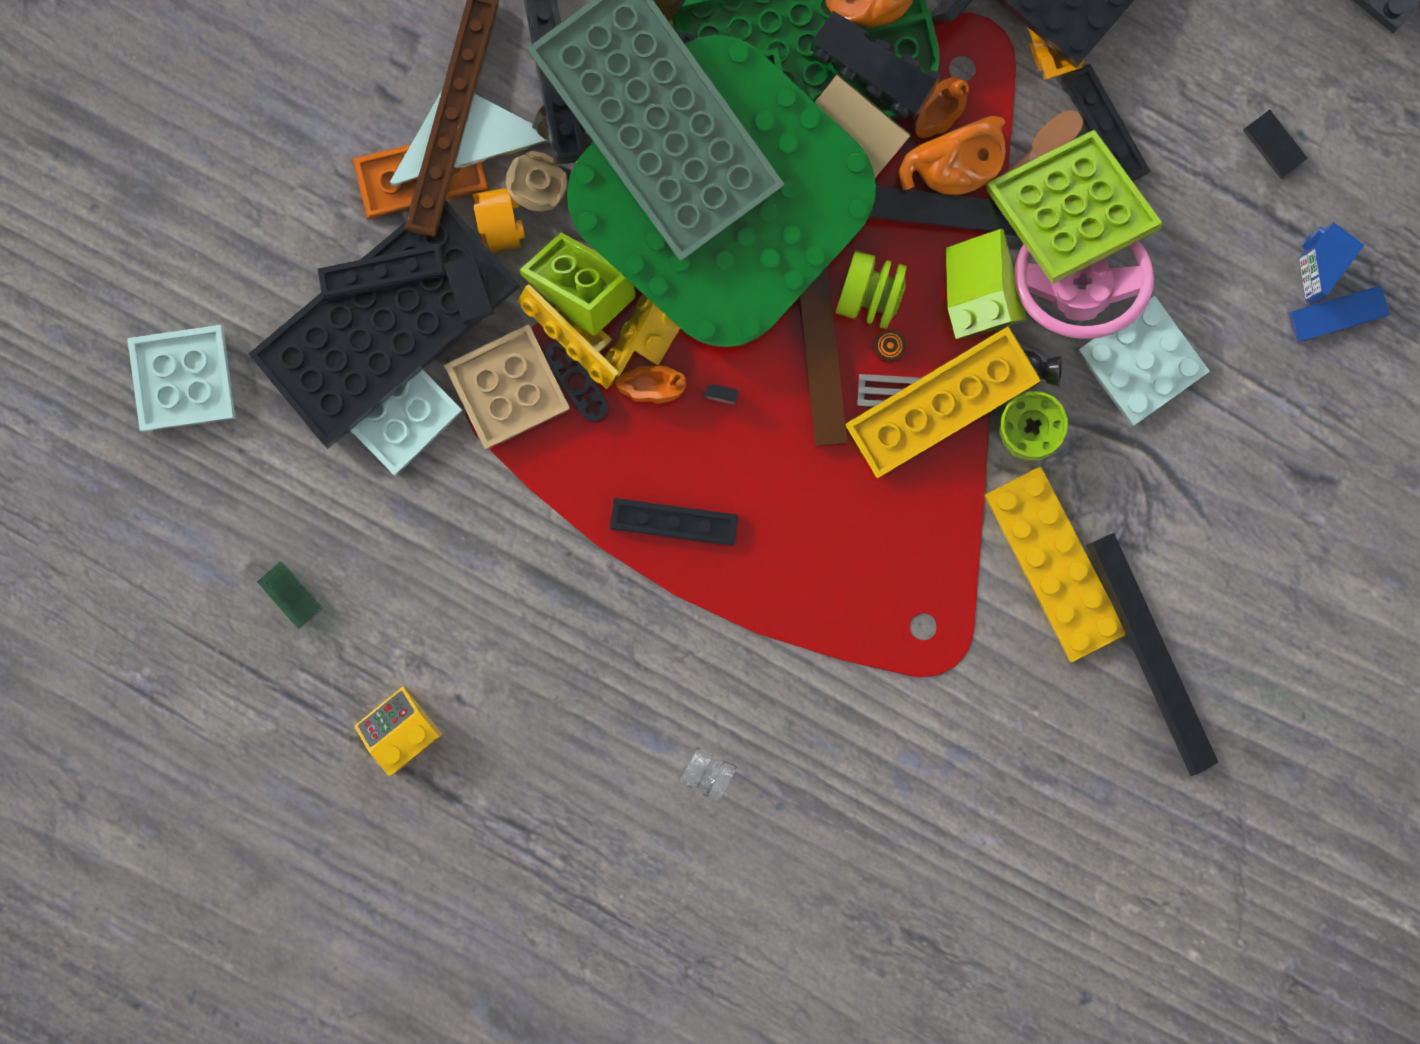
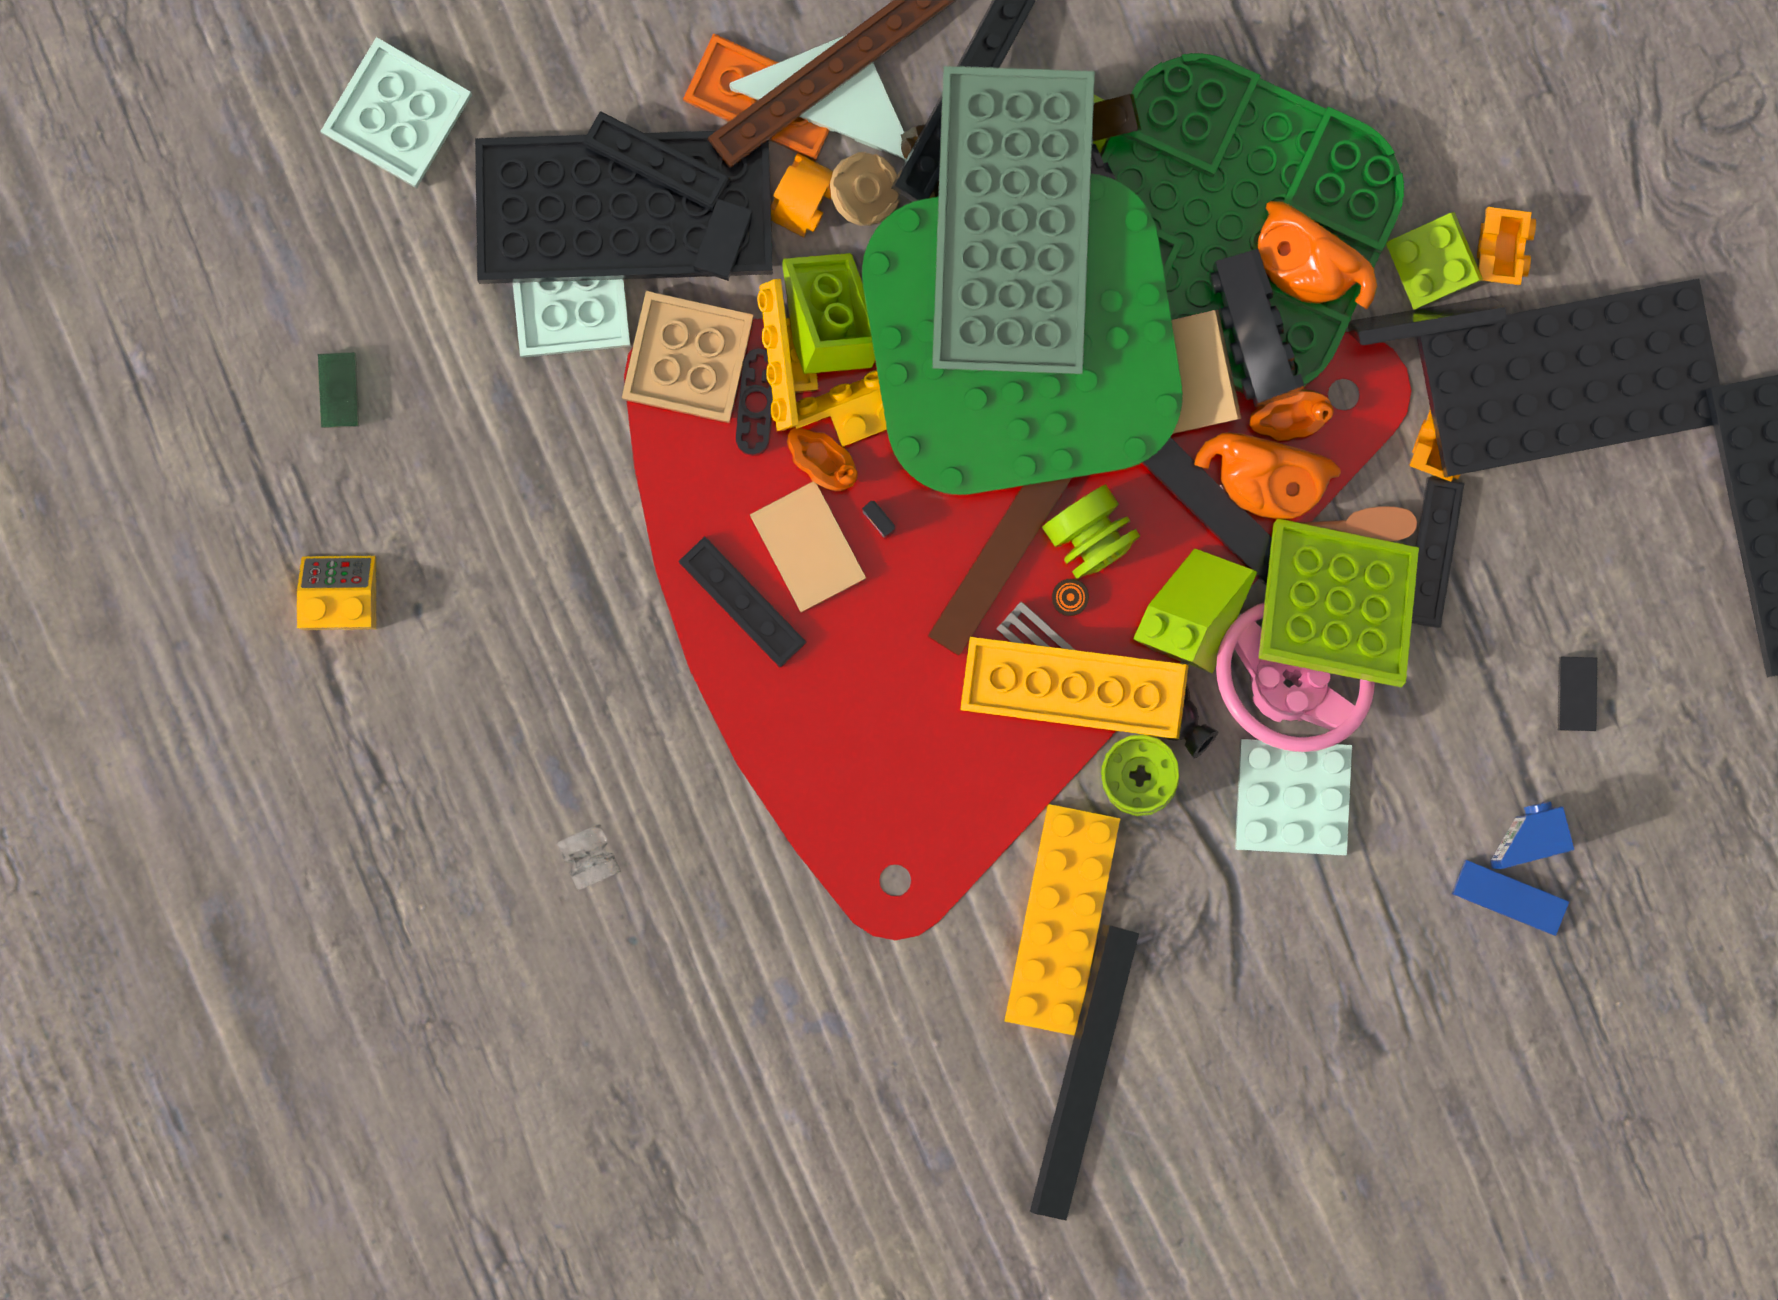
camera: 35 degrees right, 0 degrees up
(688, 450) = (808, 546): none -> tan tile

